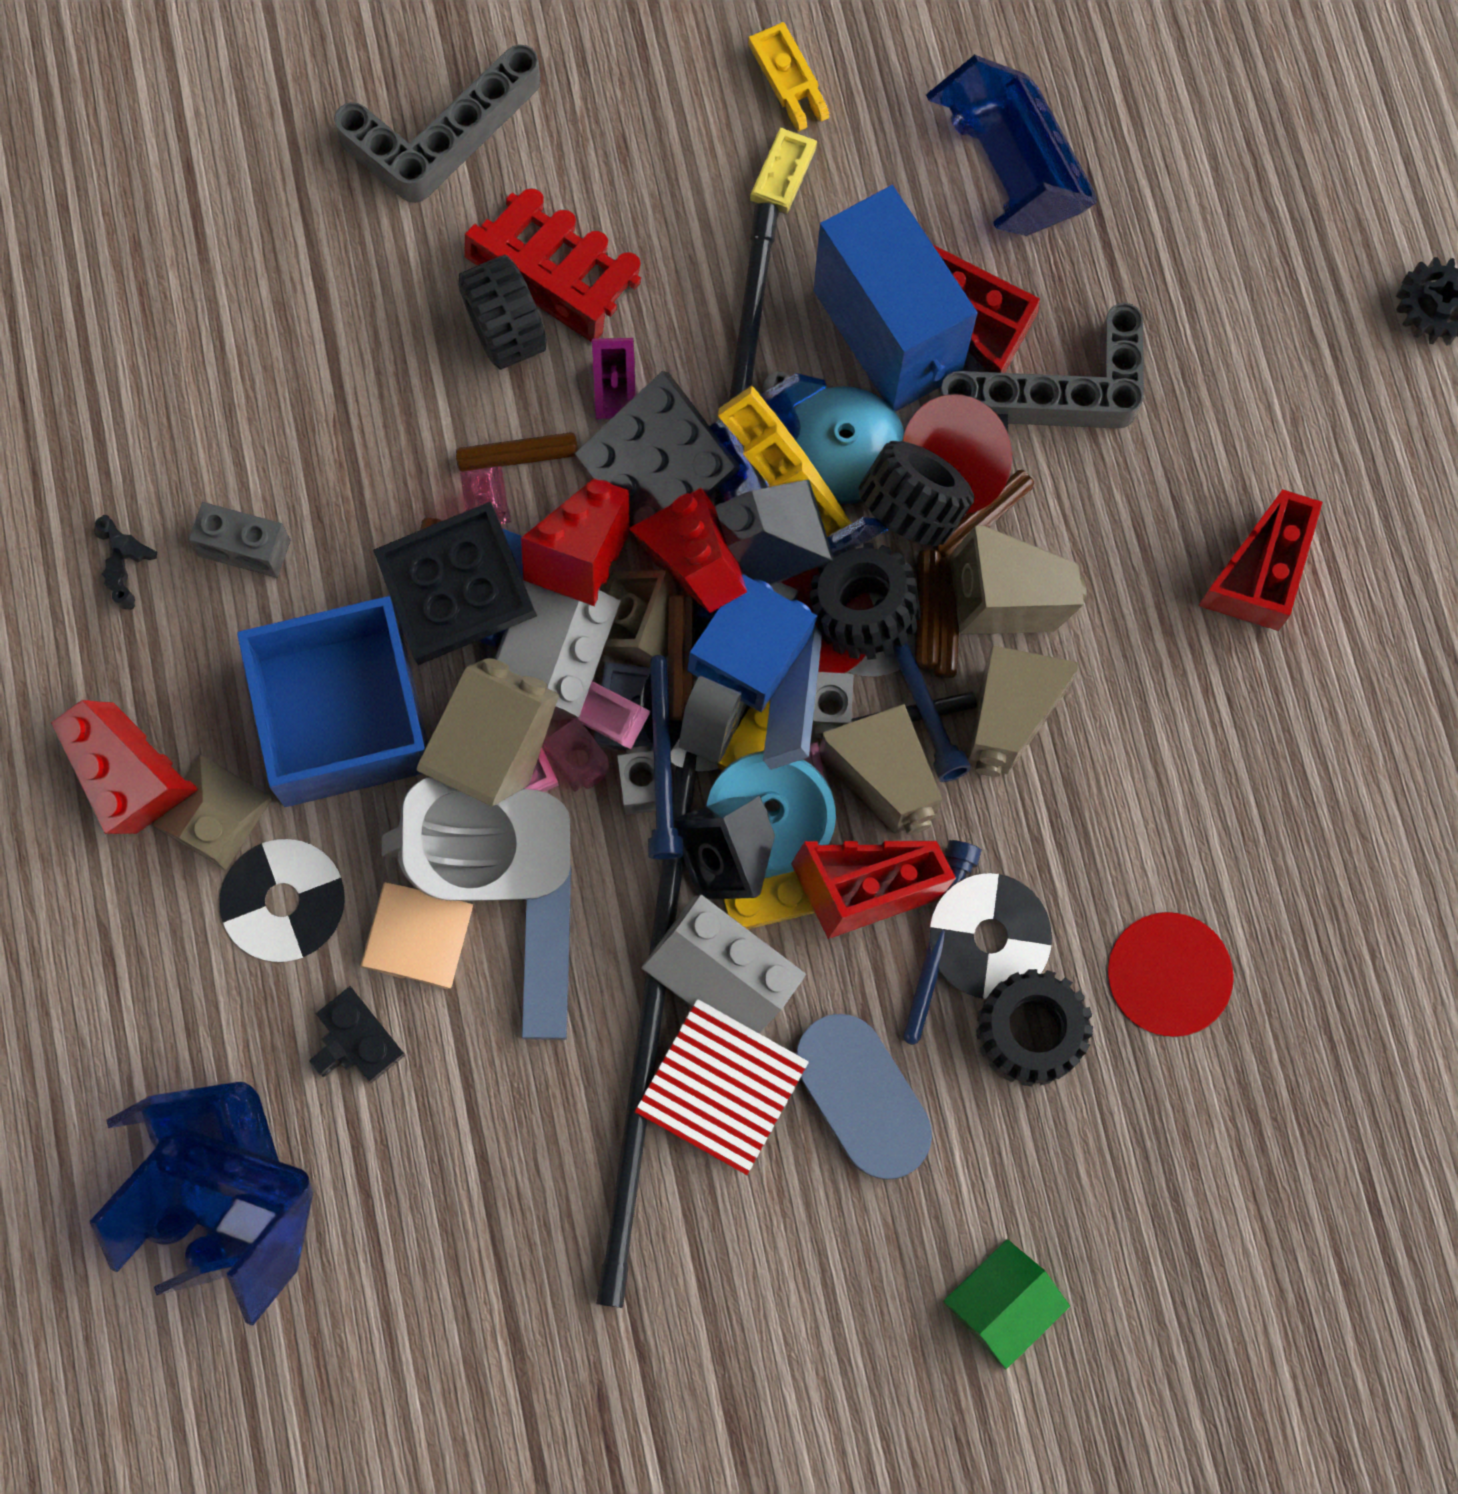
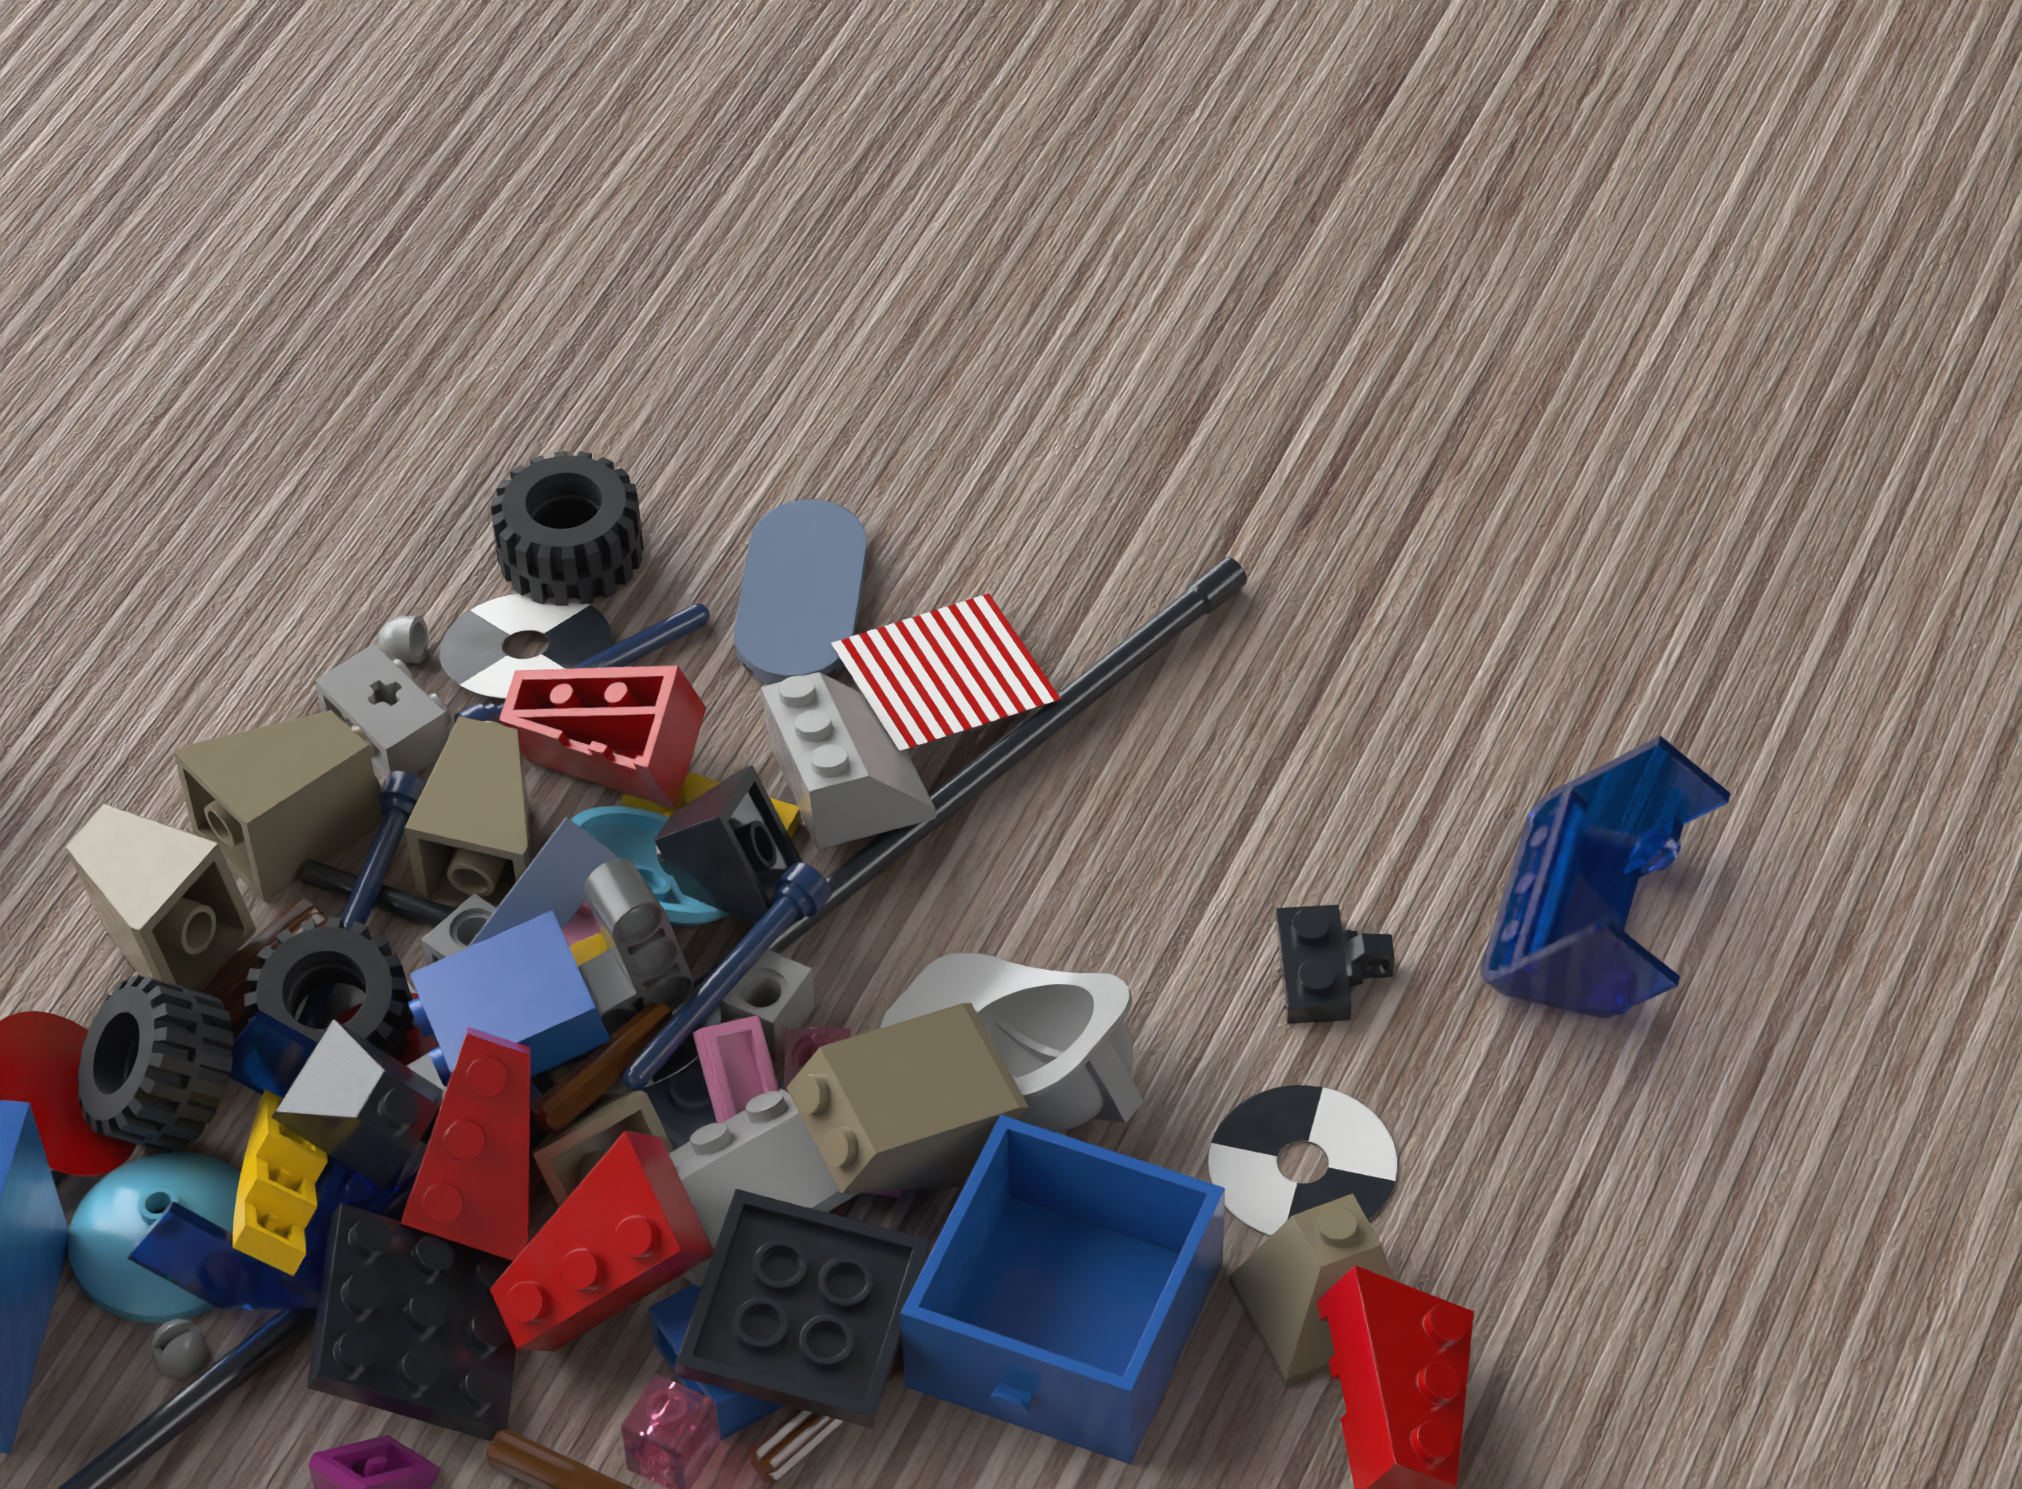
camera: 140 degrees left, 25 degrees down
(221, 1188) = (1563, 842): clear blue windscreen -> none
(416, 936) = (1180, 1013): light nougat slope -> none
(547, 965) = (1046, 895): sand blue tile -> none
(1007, 1303) = (824, 364): green slope -> none
(1042, 815) = (390, 708): none -> light grey brick
(1062, 887) = (404, 639): none -> light grey hinge
(1170, 974) = (374, 519): red sticker -> none

